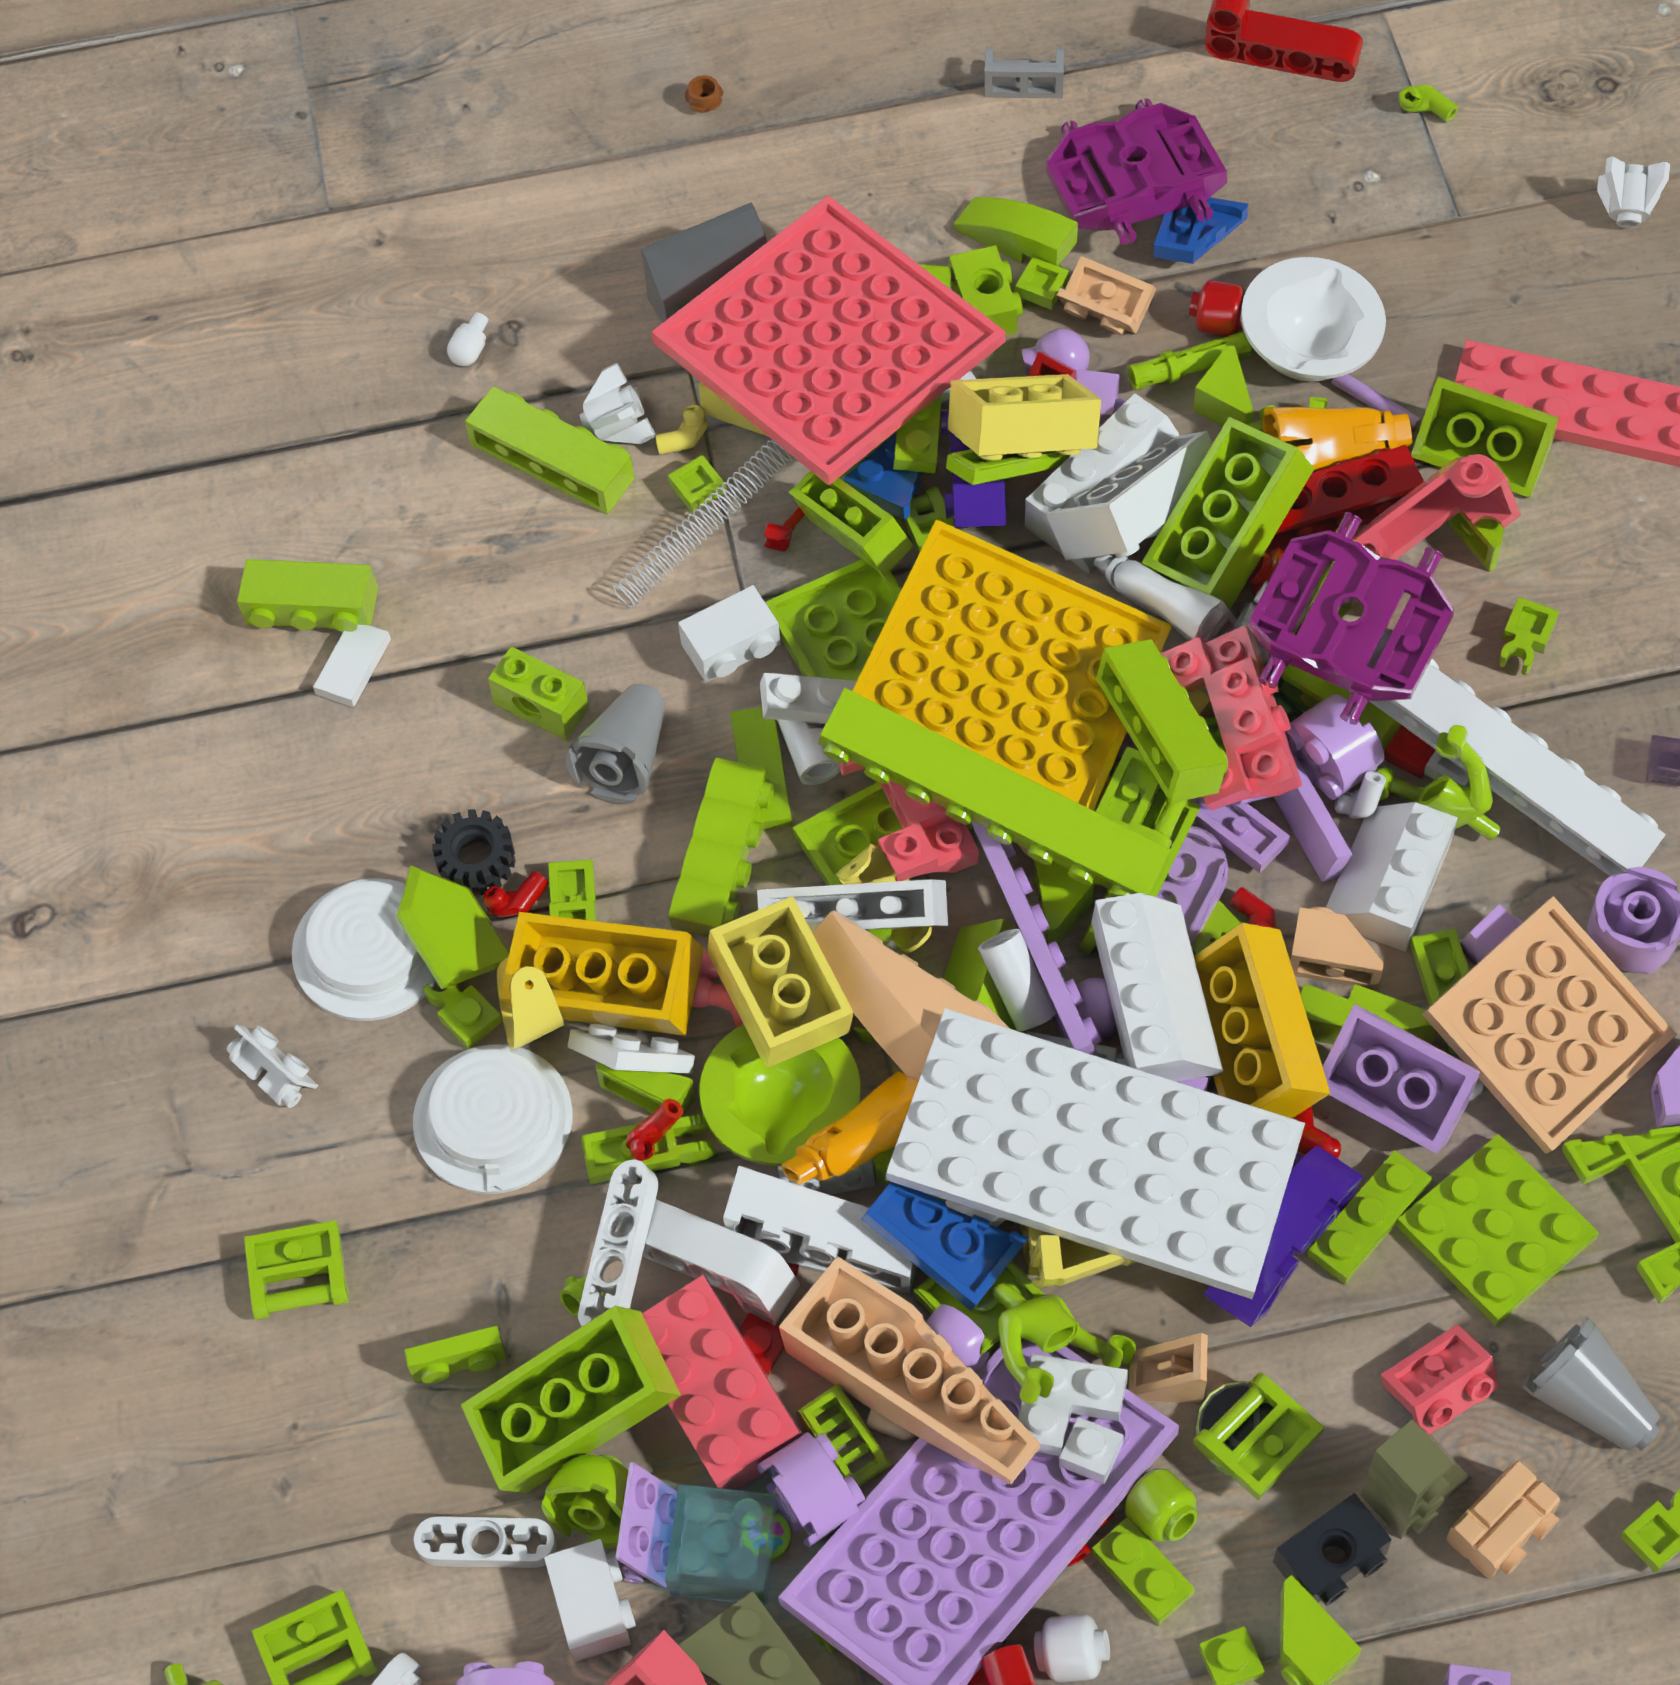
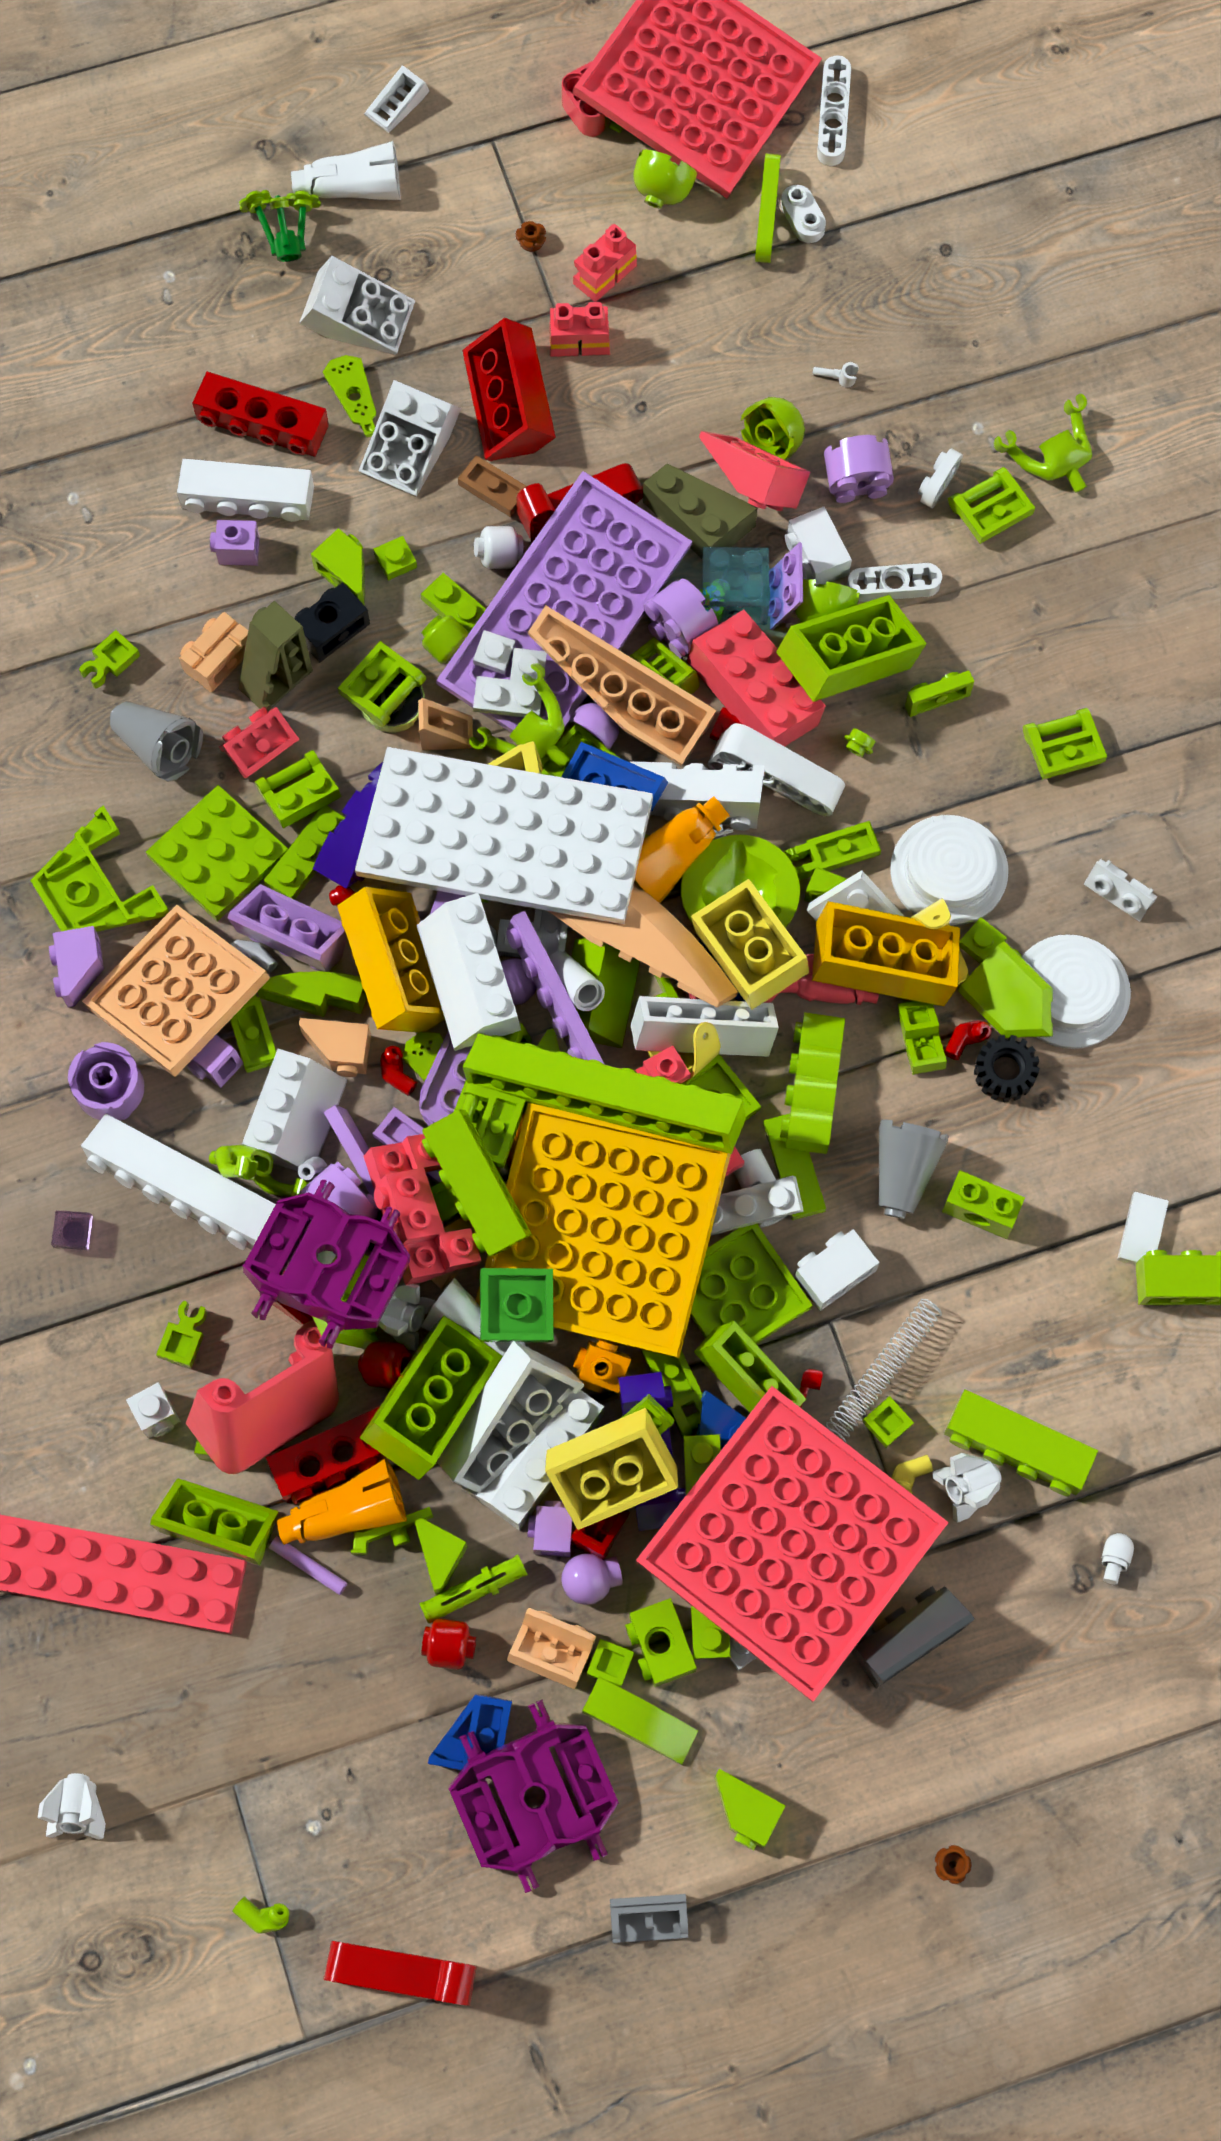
camera: 170 degrees right, 10 degrees up
(624, 1249) = (841, 759): white beam -> none
(652, 1129) = (827, 852): red arm -> none
(908, 147) = (747, 1810): none -> lime slope
(1027, 542) = (606, 1377): none -> light orange brick
(1120, 594) = (516, 1305): none -> bright green plate
(1313, 318) = (364, 1629): white piece -> none
(1377, 1288) = (301, 797): none -> lime plate
(1560, 552) = (153, 1411): none -> white brick

